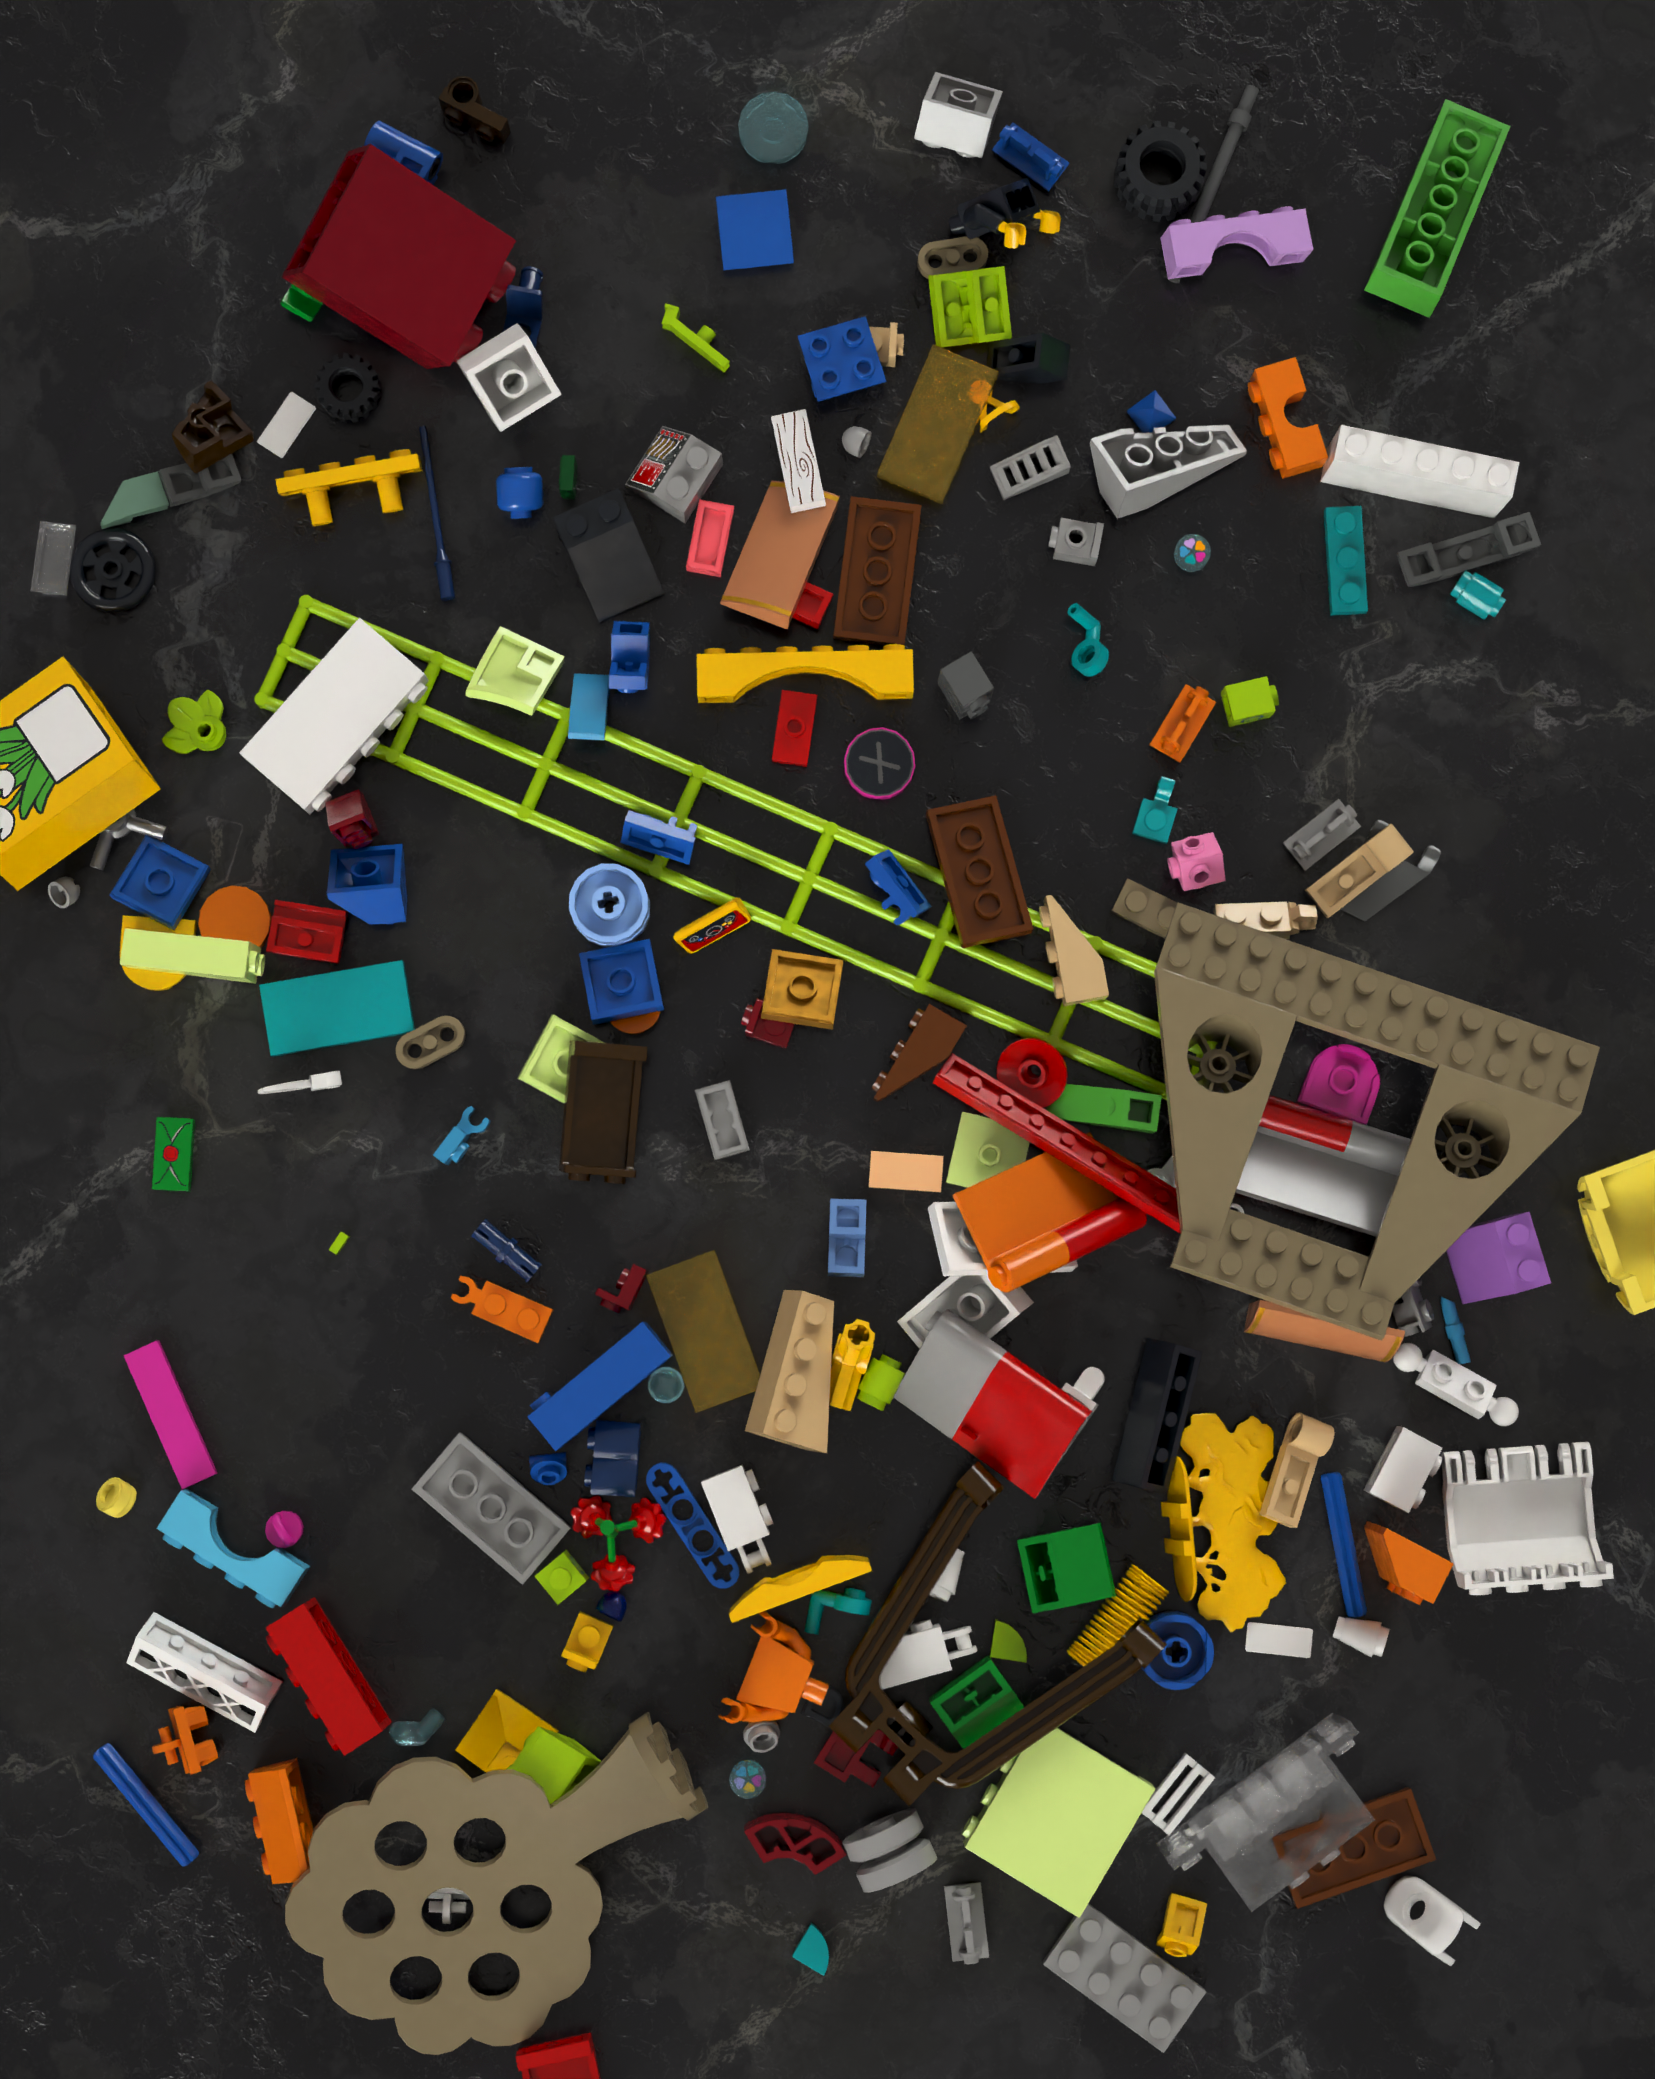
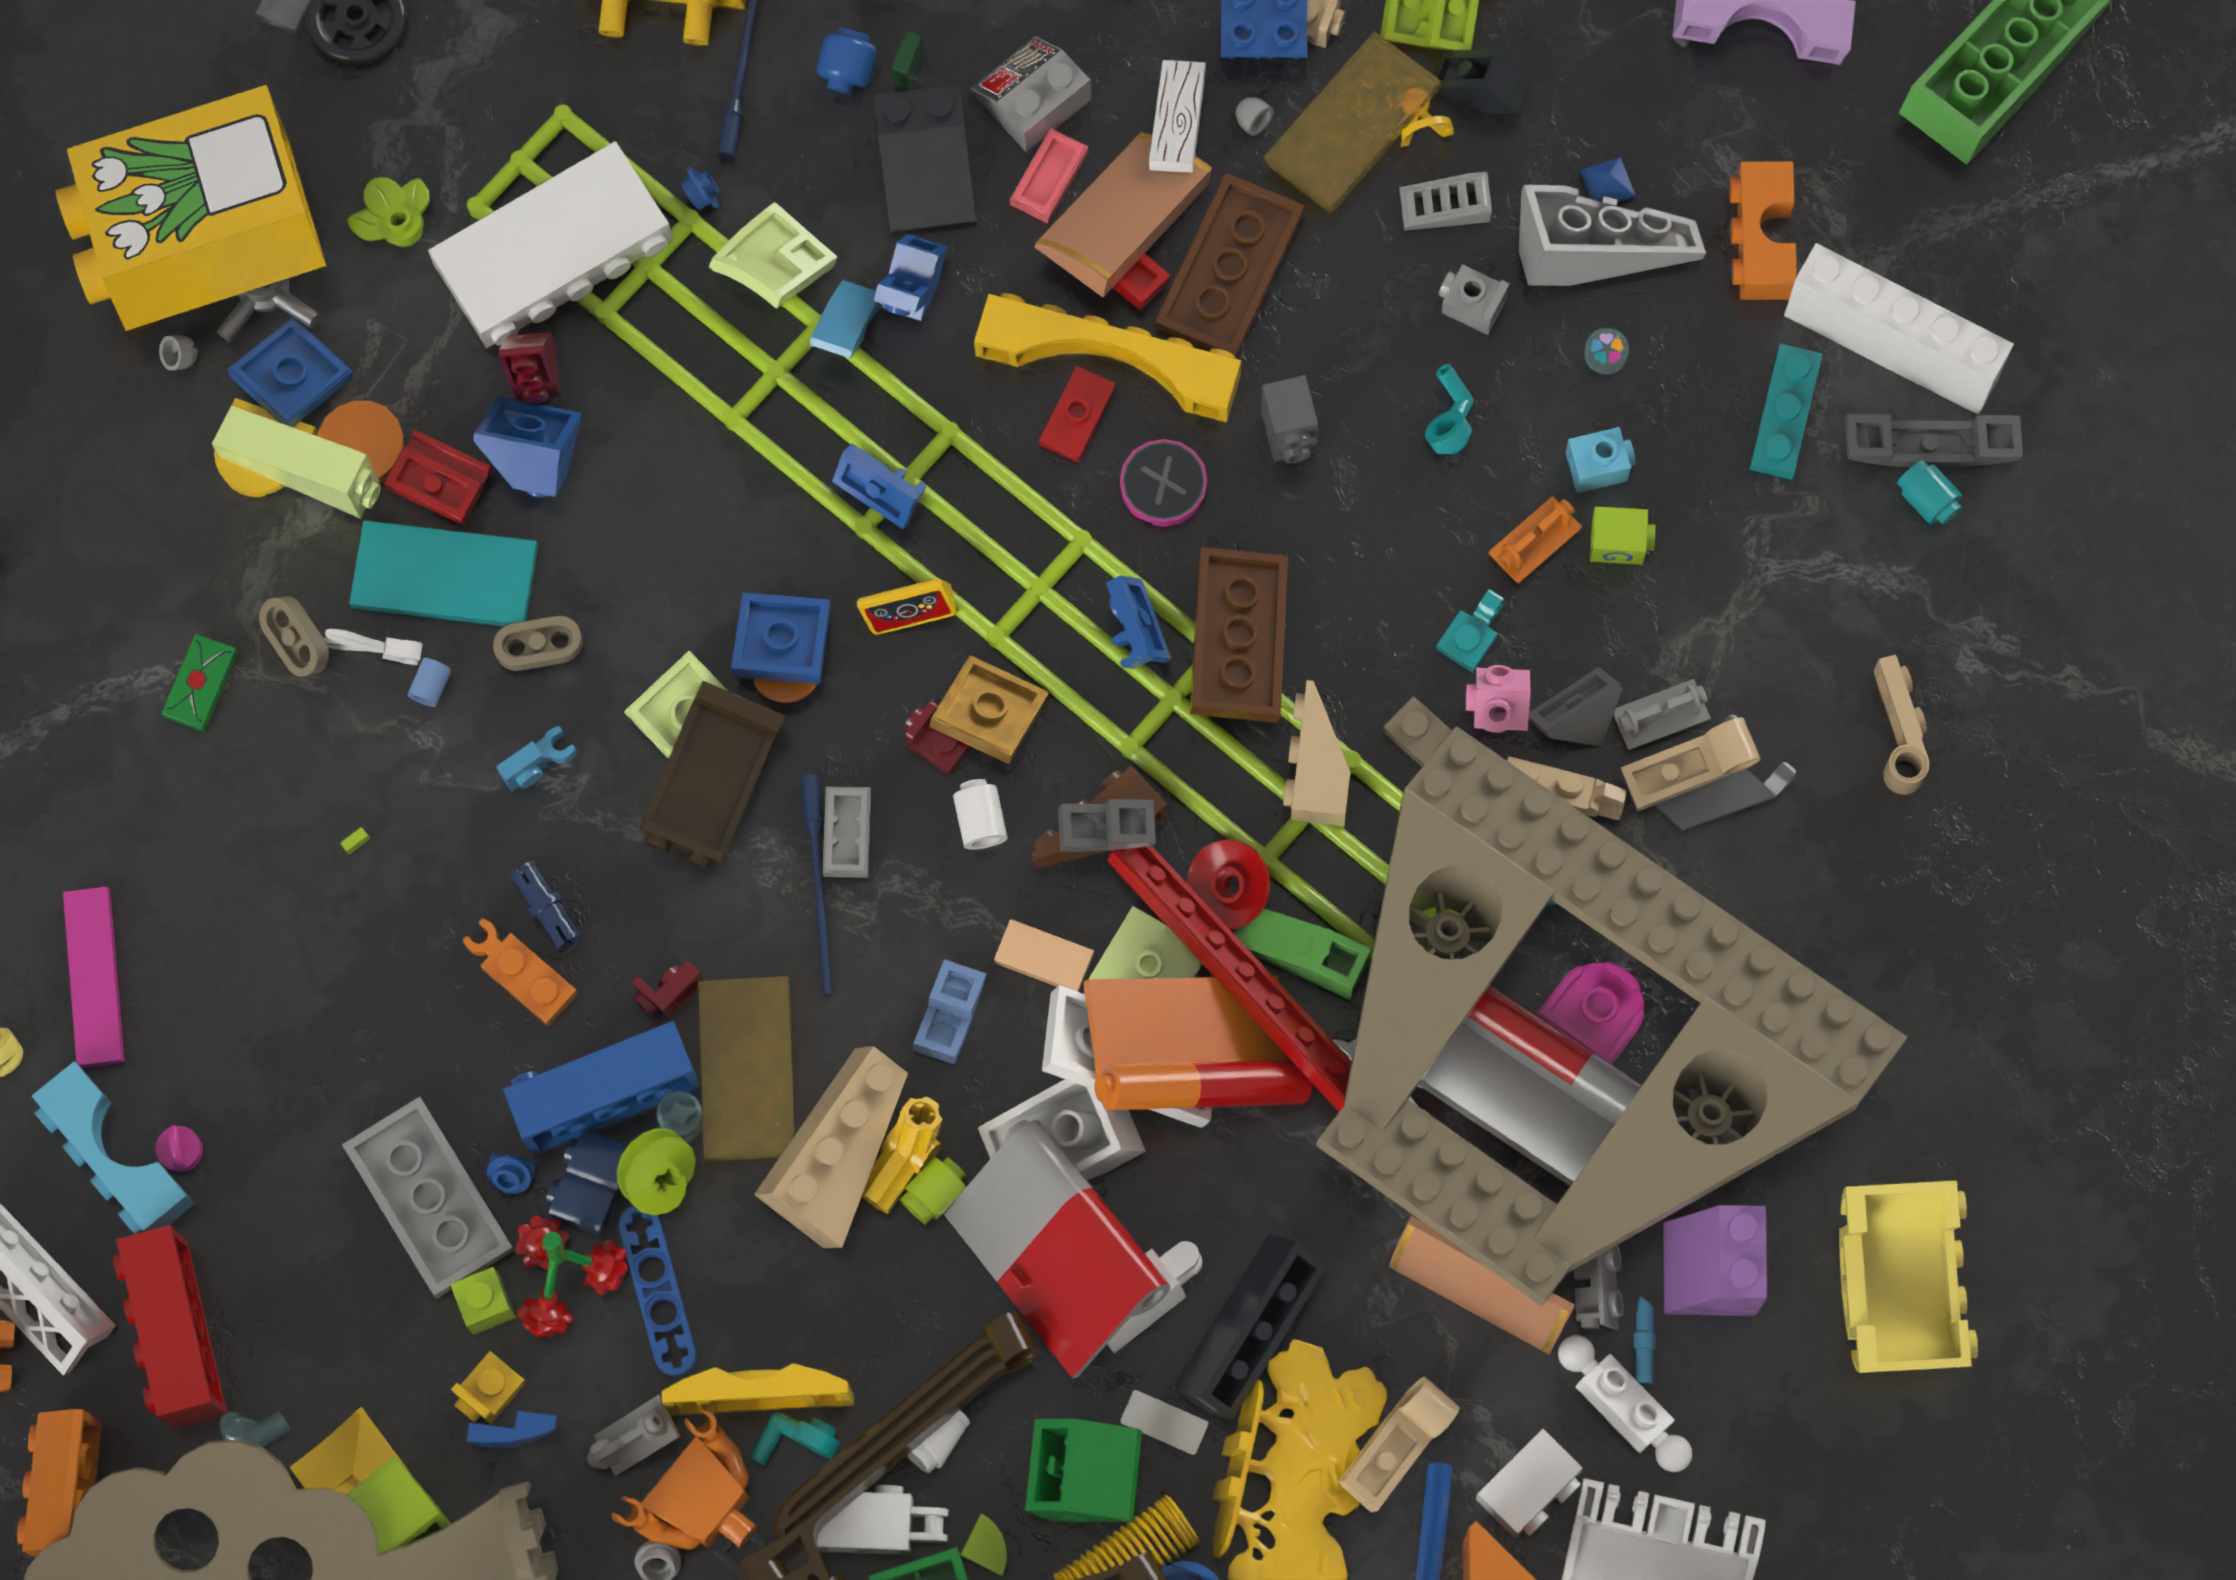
camera: 25 degrees right, 10 degrees down
(236, 1095) = (295, 641): none -> dark tan plate
(355, 1099) = (429, 682): none -> medium blue hinge
(437, 632) = (700, 189): none -> blue plate
(594, 890) = (792, 522): light blue wheel -> none
(612, 1605) = (531, 1356): clear blue hinge -> none
(629, 1665) = (527, 1429): none -> blue slope
(664, 1437) = (656, 1171): none -> lime piece
(692, 1117) = (813, 821): none -> dark blue piece
(712, 1647) = (633, 1437): none -> light grey hinge
(739, 1513) = (716, 1291): white brick -> none
(821, 1075) = (979, 815): none -> white brick
(926, 1058) = (1106, 826): none -> dark grey slope
(1110, 1504) = (1164, 1422): none -> white sticker
(1214, 644) = (1599, 459): none -> medium azure brick
(1259, 849) = (1581, 710): none -> dark grey slope
(1513, 786) = (1907, 724): none -> tan plate

